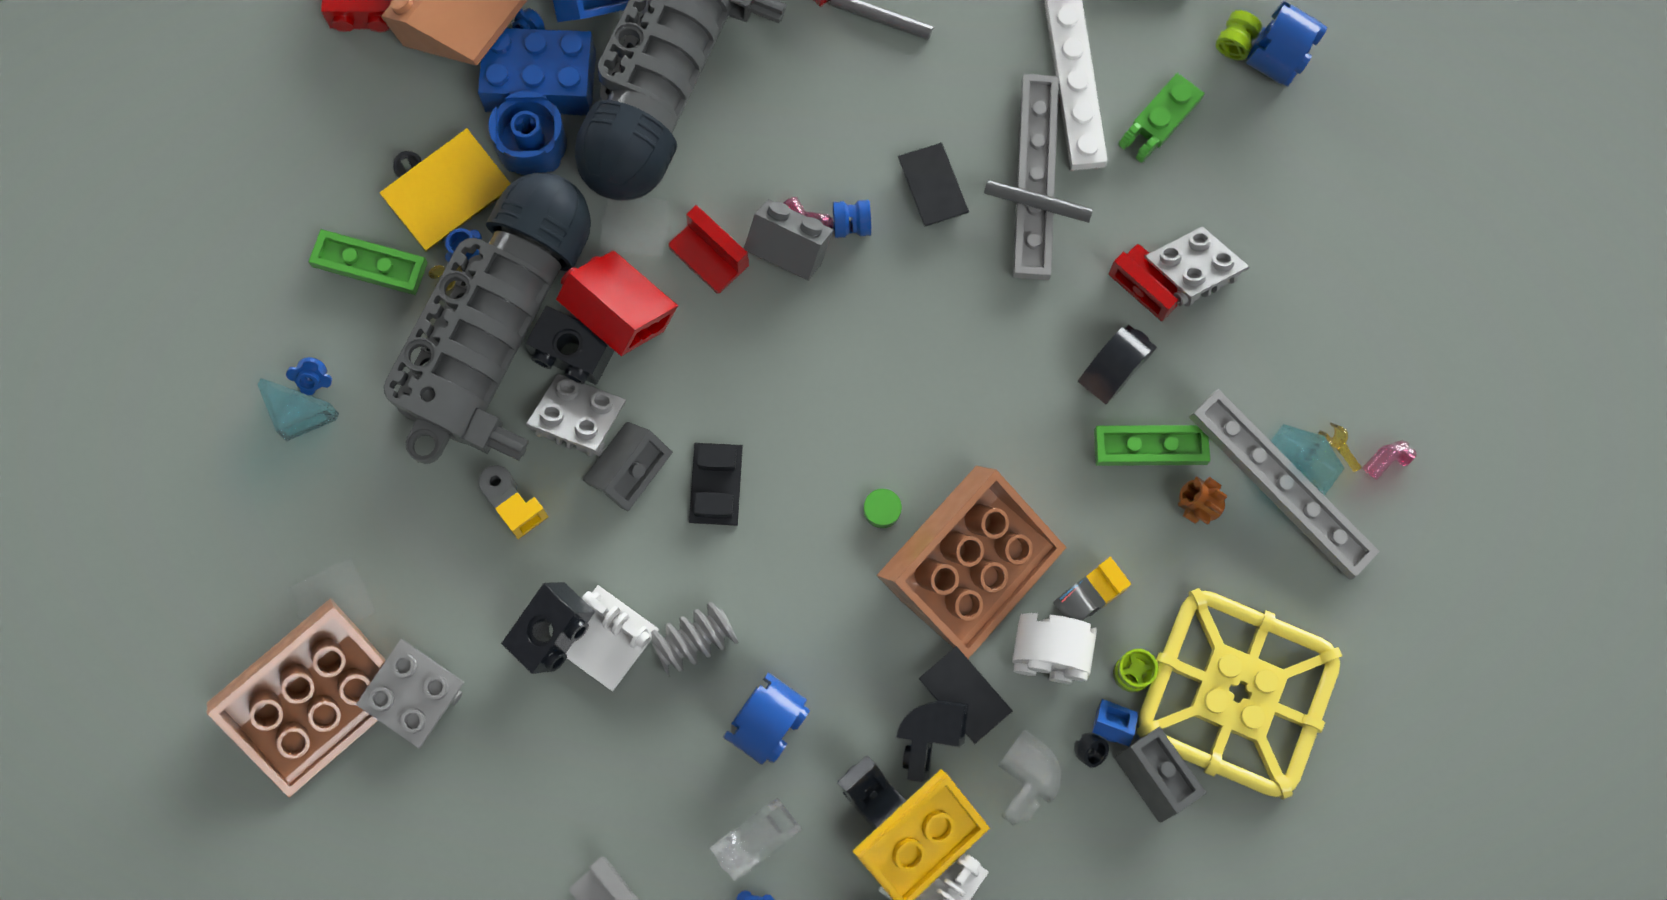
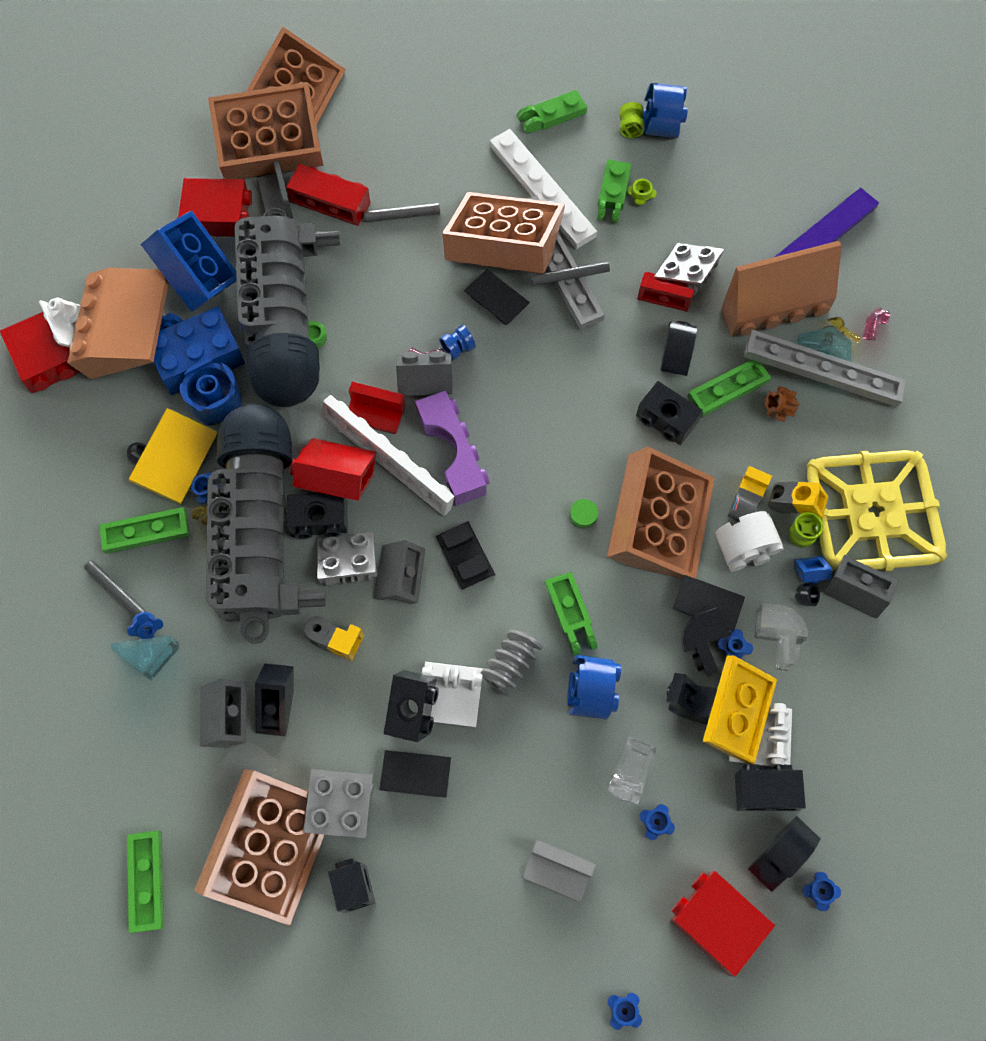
camera: 25 degrees left, 5 degrees down
(162, 664) = (145, 882): none -> bright green plate
(300, 313) = (113, 588): none -> dark grey bar
(339, 523) = (223, 714): none -> dark grey brick
(372, 792) = (351, 886): none -> black brick
(405, 536) = (274, 699): none -> black slope
(514, 707) = (415, 773): none -> black piece
(691, 122) = (317, 333): none -> bright green tile
(695, 329) = (388, 456): none -> white plate
(764, 389) = (440, 419): none -> medium lavender arch
(797, 614) = (570, 610): none -> bright green hinge
(974, 770) = (736, 637): none -> blue plate
(987, 105) = (503, 232): none -> nougat slope
(1055, 418) = (662, 400): none -> black brick
(1149, 629) = (798, 498): none -> leg
(1197, 127) = (644, 186): none -> lime plate
(1287, 359) = (782, 289): none -> nougat slope
(1383, 312) = (835, 223): none -> dark purple tile

